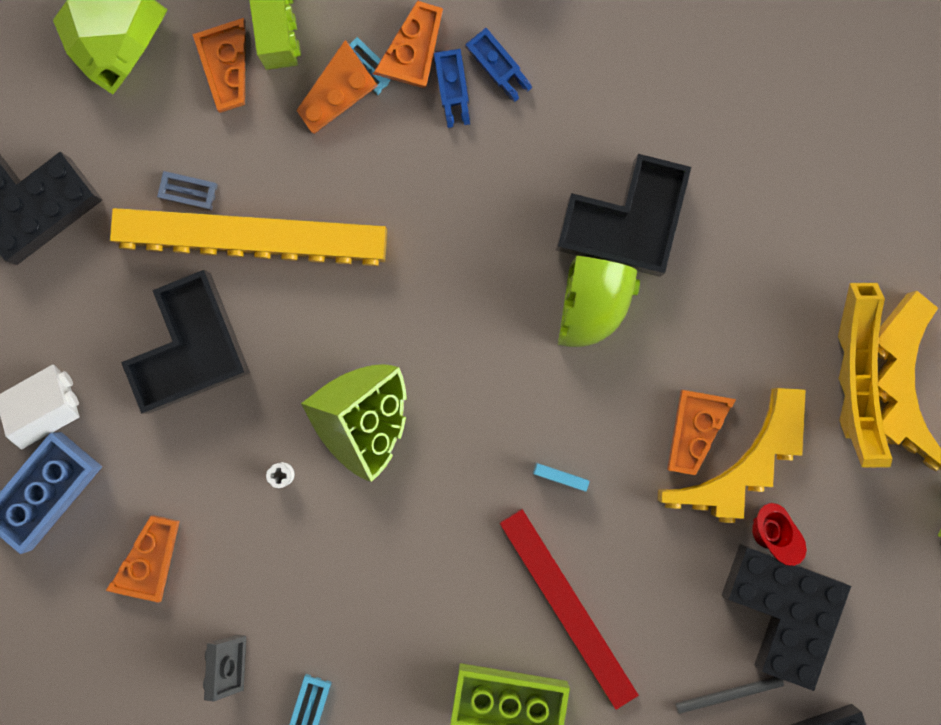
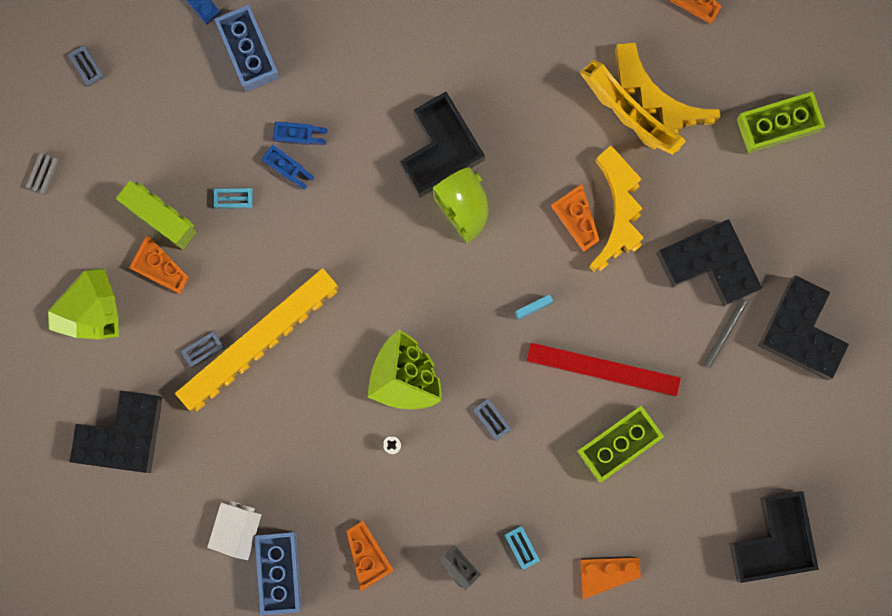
camera: 40 degrees left, 5 degrees down
(201, 351) = (291, 422): black piece -> none
(336, 89) = (229, 224): orange wing -> none
(403, 571) = (482, 406): none -> sand blue tile
(413, 47) = (247, 166): orange wing -> none
(778, 533) = (667, 228): red piece -> none

